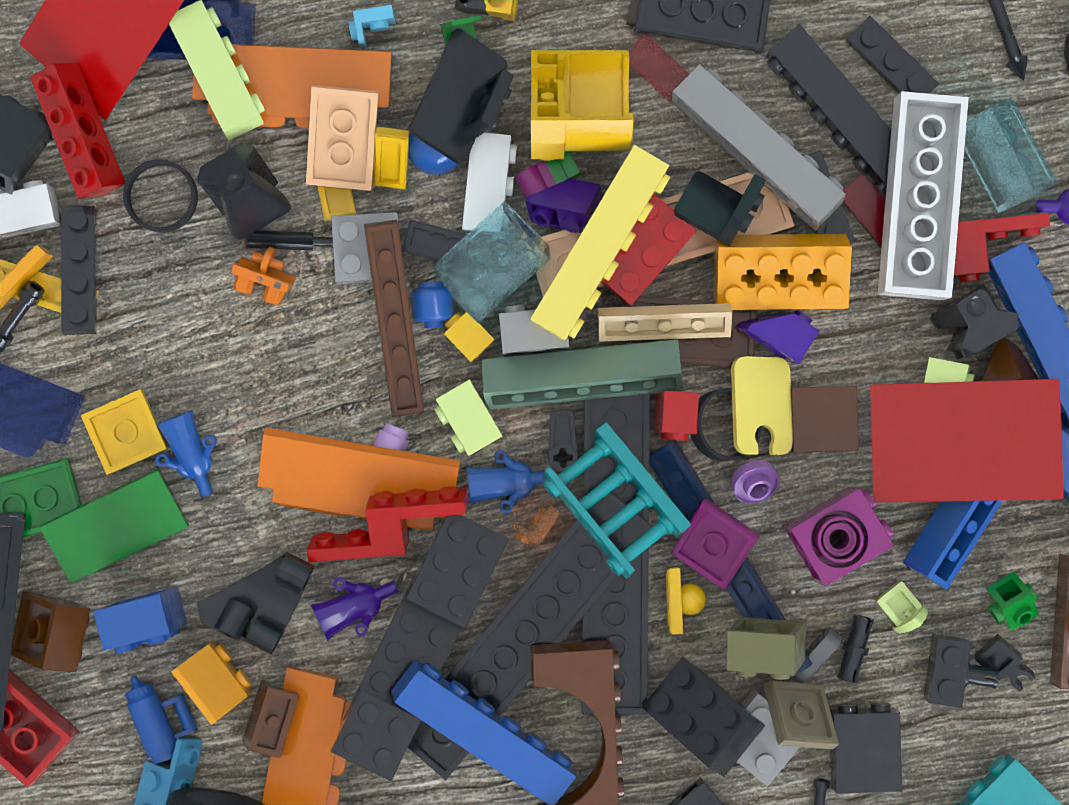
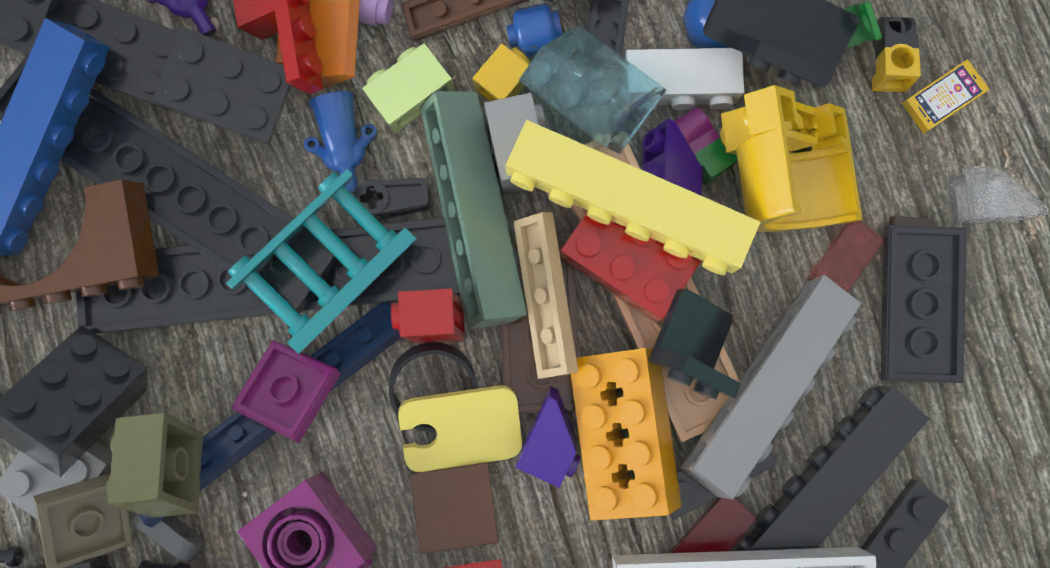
camera: 80 degrees right, 5 degrees down
(543, 523) = (280, 172): clear orange bracket -> none
(684, 599) = (218, 359): yellow tile -> none
(754, 481) = (368, 430): medium lavender plate -> none

